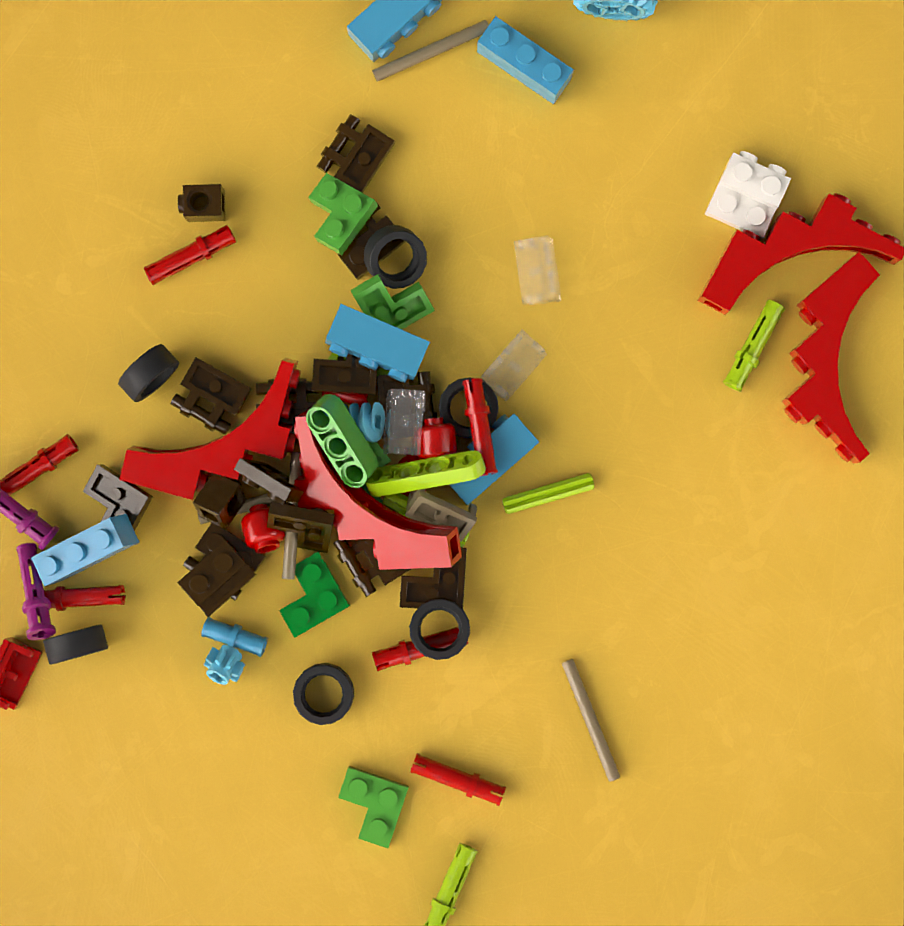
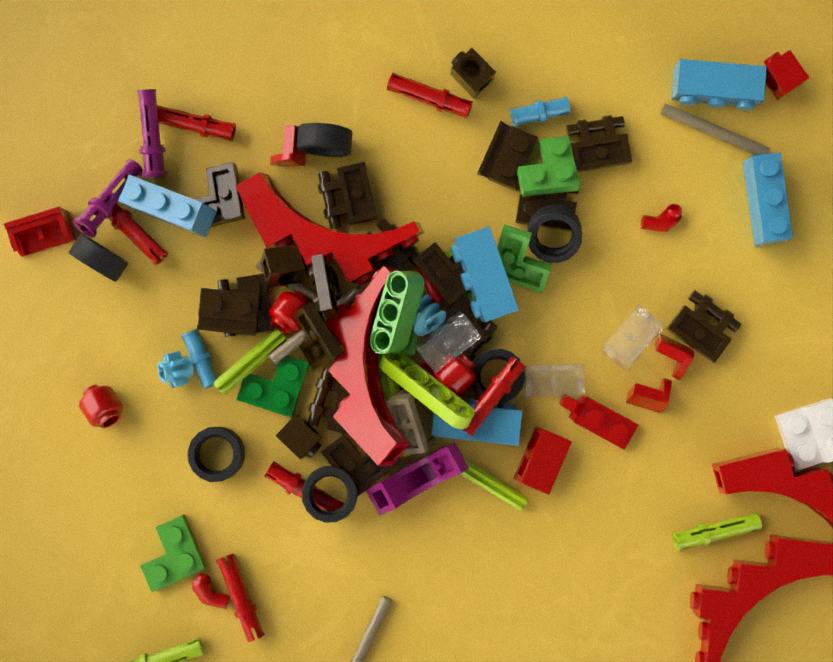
camera: 45 degrees right, 0 degrees up
(133, 410) = (290, 154): none -> red tile
(198, 752) = (101, 406): none -> red head
(273, 598) = (249, 361): none -> lime axle
(285, 177) = (540, 111): none -> dark azure pin
(294, 234) = (506, 152): none -> dark brown plate
(372, 613) = (300, 437): none -> dark brown brick
(430, 805) = (206, 594): none -> red arm
(466, 158) = (664, 221): none -> red arm
(491, 547) = (416, 478): none -> magenta arch
(569, 433) = (542, 460): none -> red hinge
(579, 357) = (600, 420): none -> red hinge
(580, 245) = (677, 352): none -> red tile
(583, 213) = (699, 333): none -> dark brown plate
(598, 300) = (649, 397): none -> red tile

